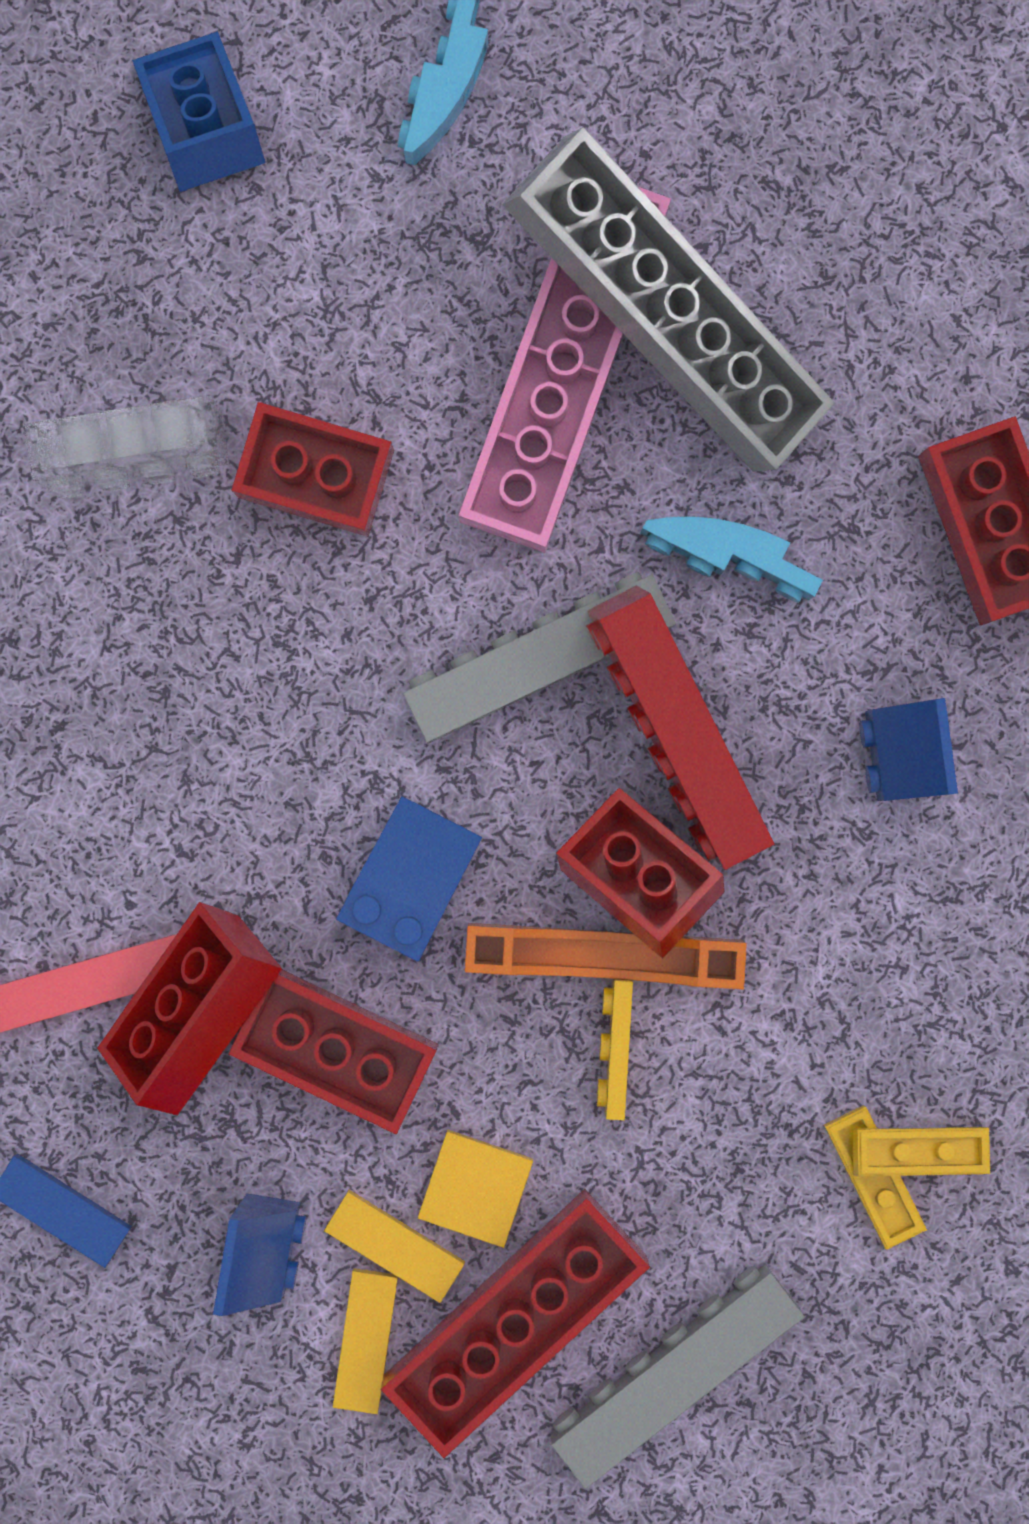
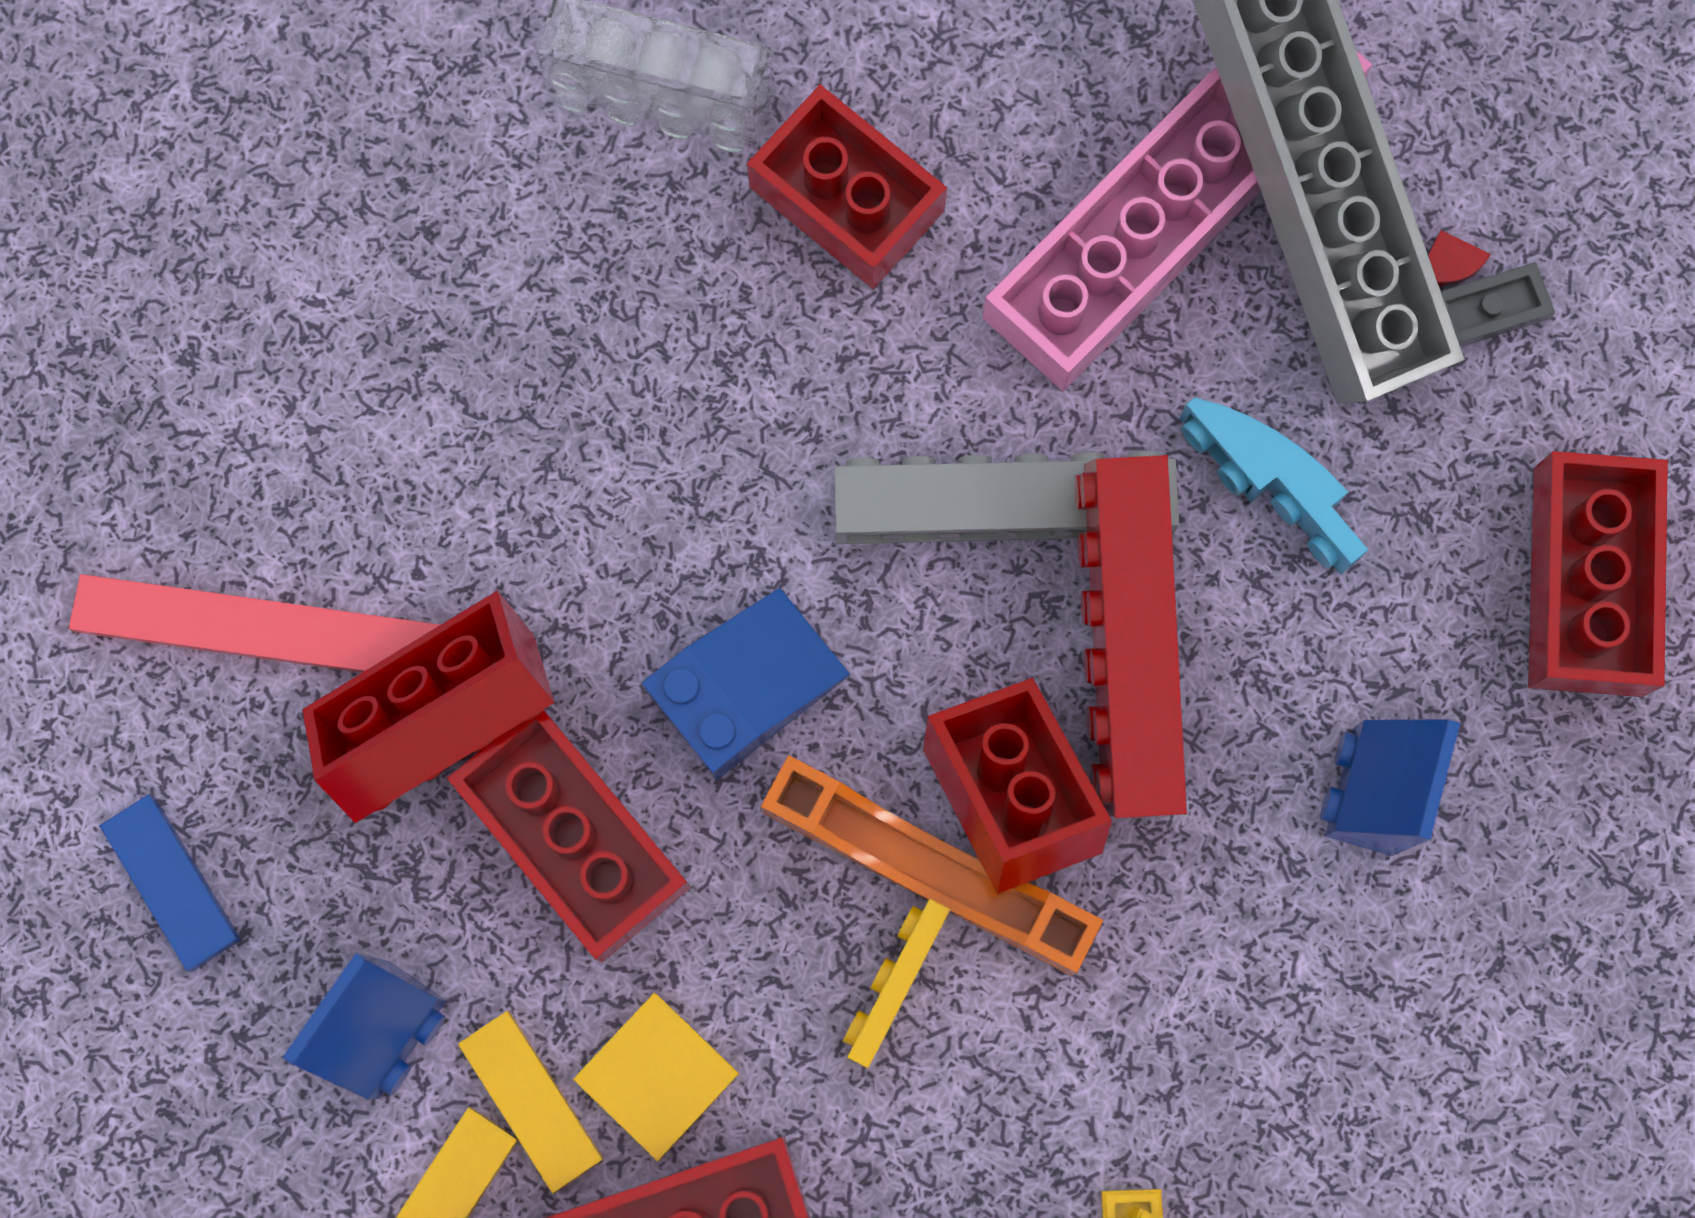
camera: 25 degrees right, 10 degrees down
(792, 320) = (1455, 259): none -> red tile
(839, 342) = (1498, 304): none -> dark grey plate

